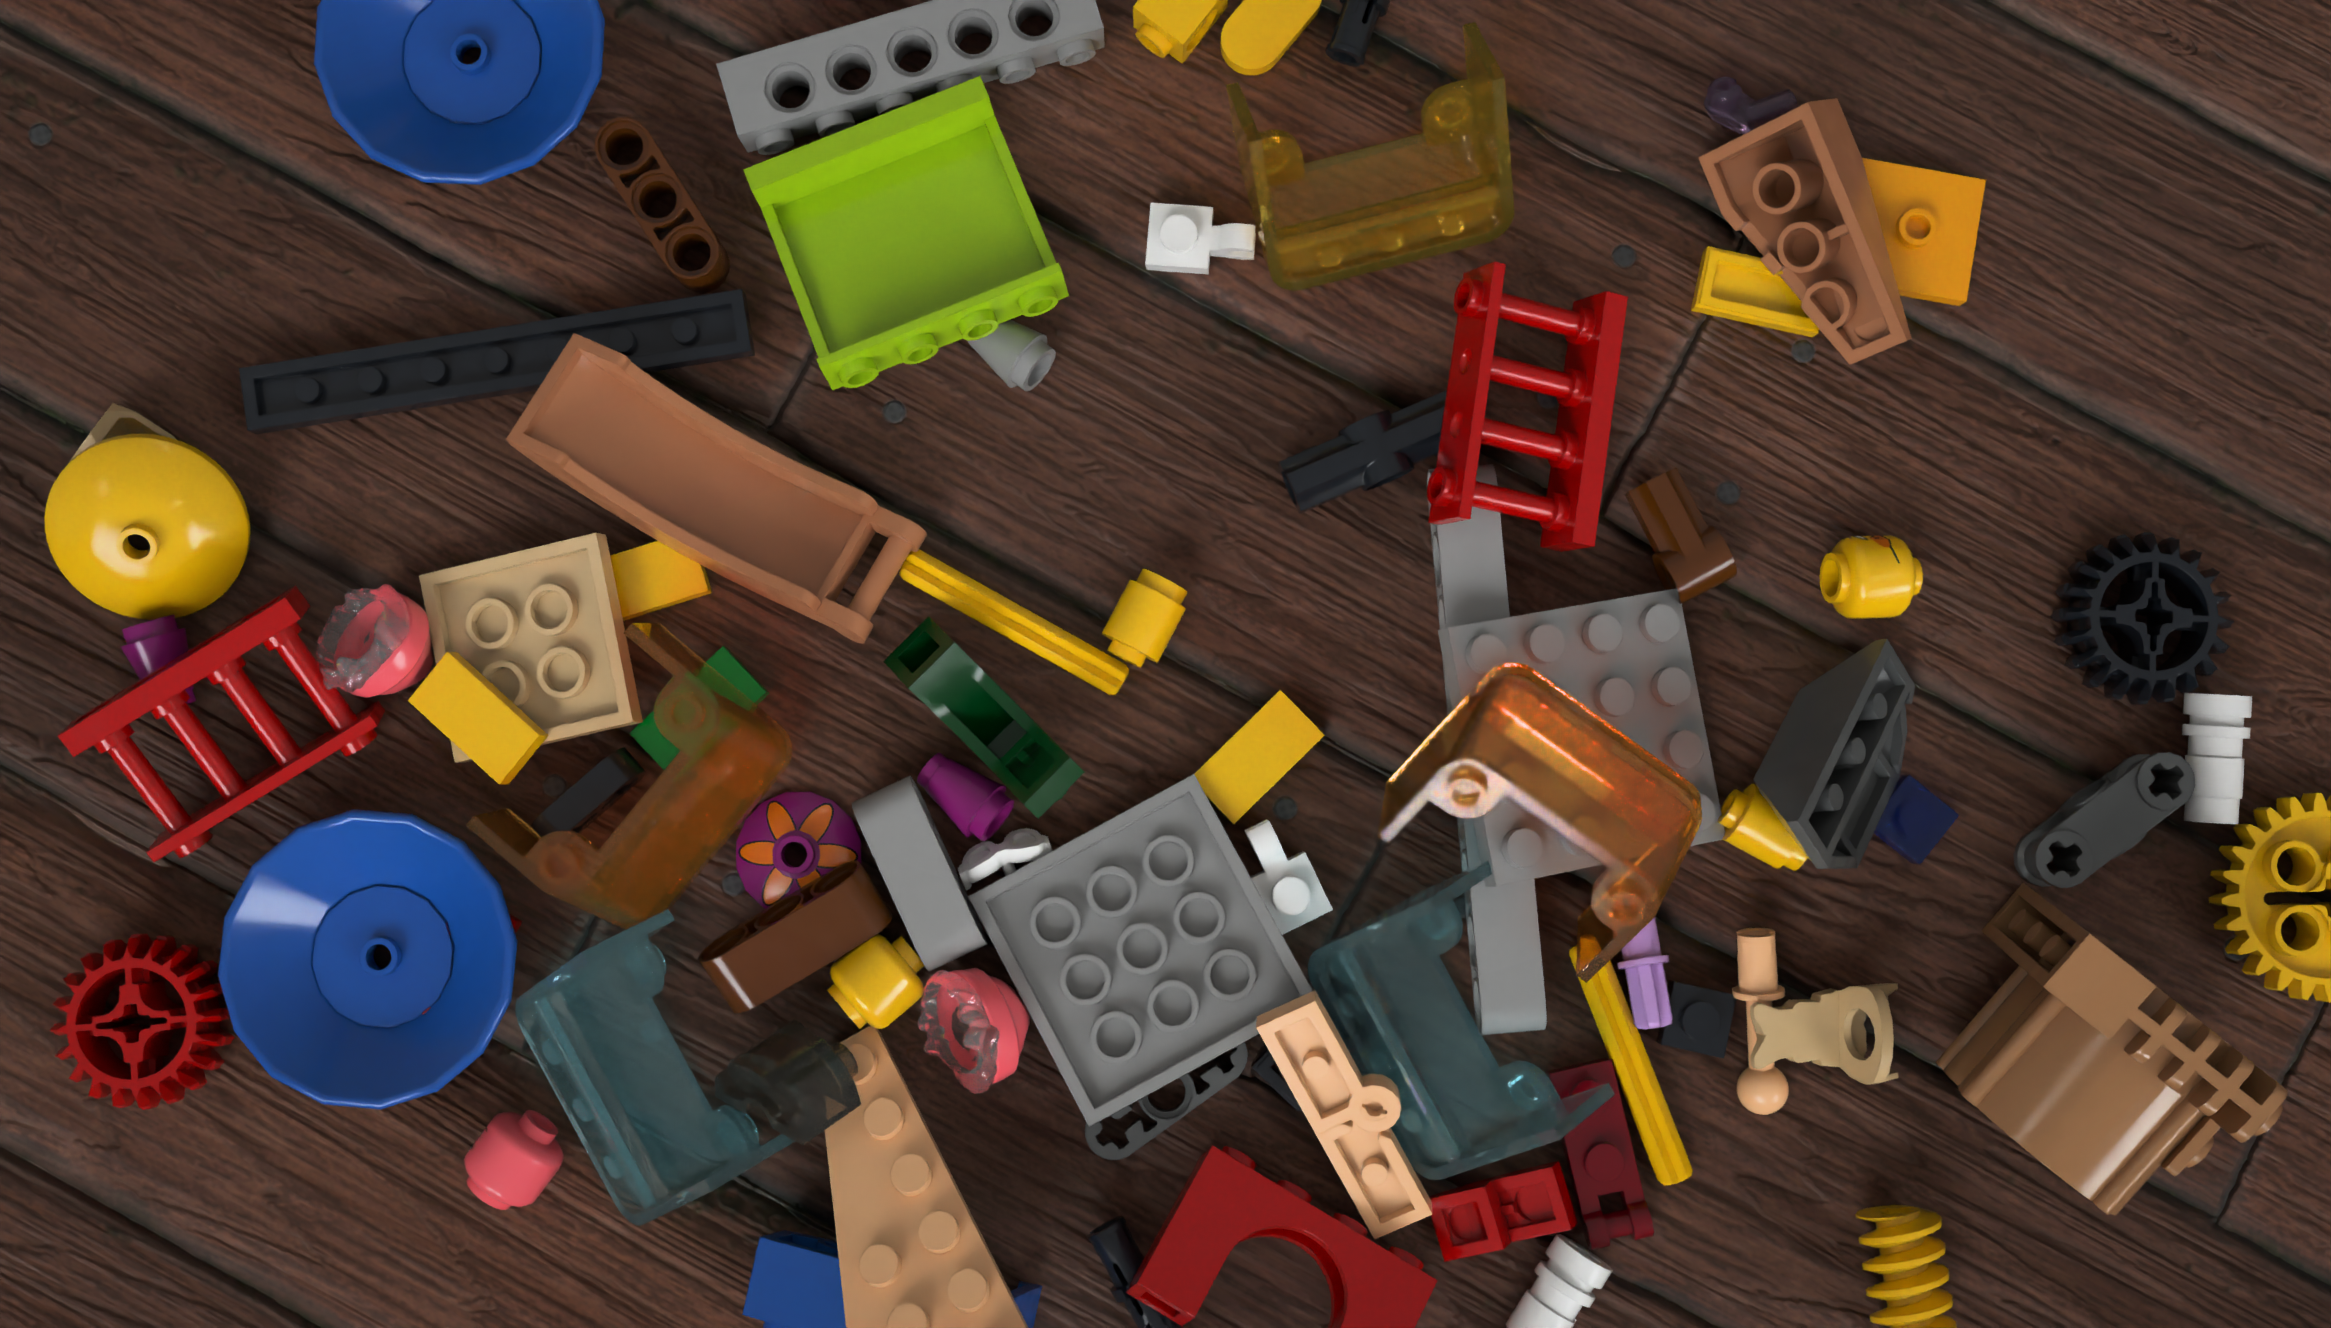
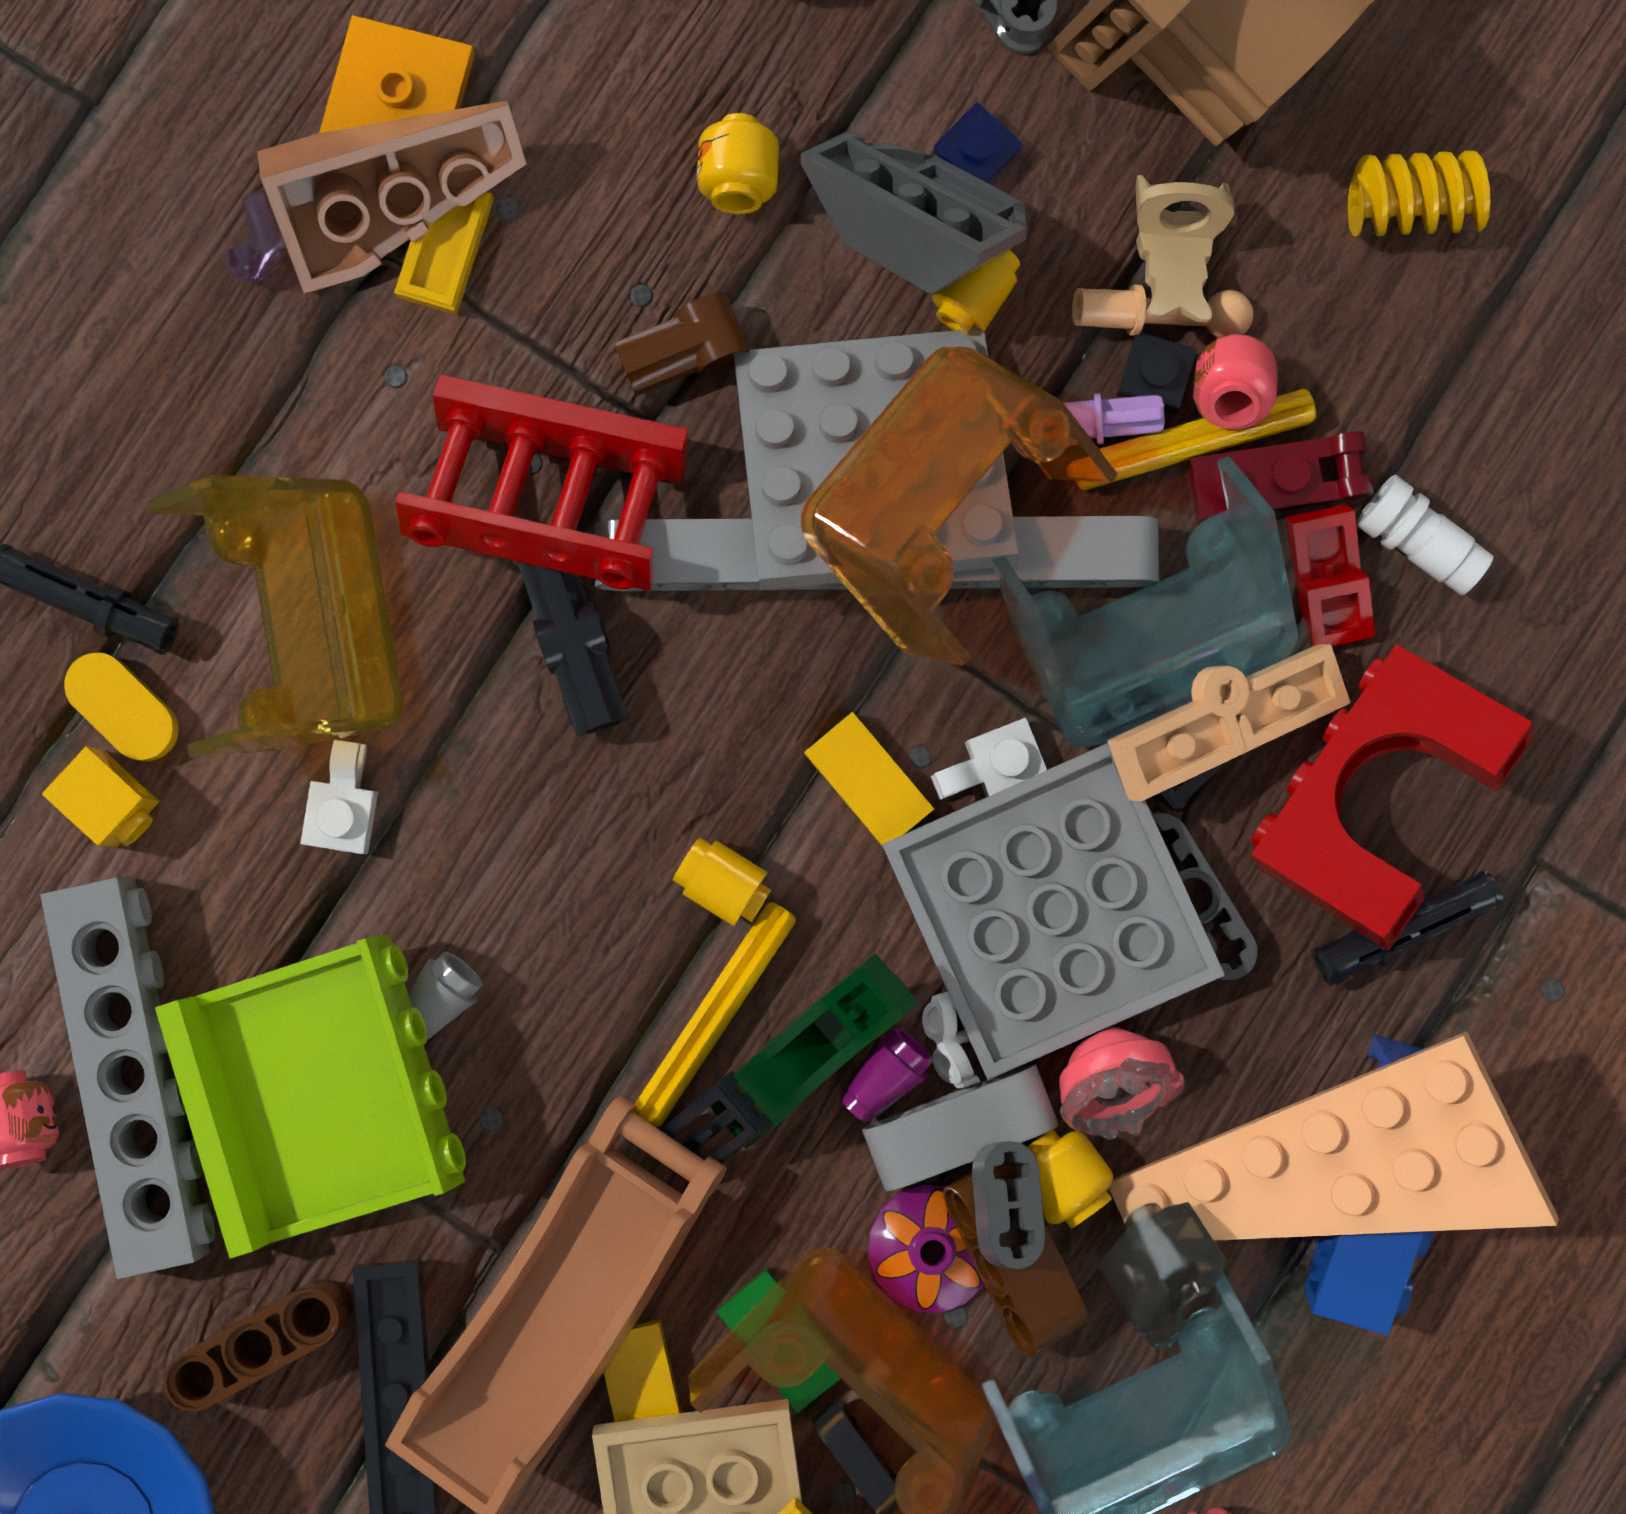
camera: 85 degrees left, 0 degrees up
(848, 938) = (1008, 1204): none -> dark grey beam
(921, 647) = (737, 1108): none -> black tile
(1692, 1099) = (1235, 382): none -> coral head

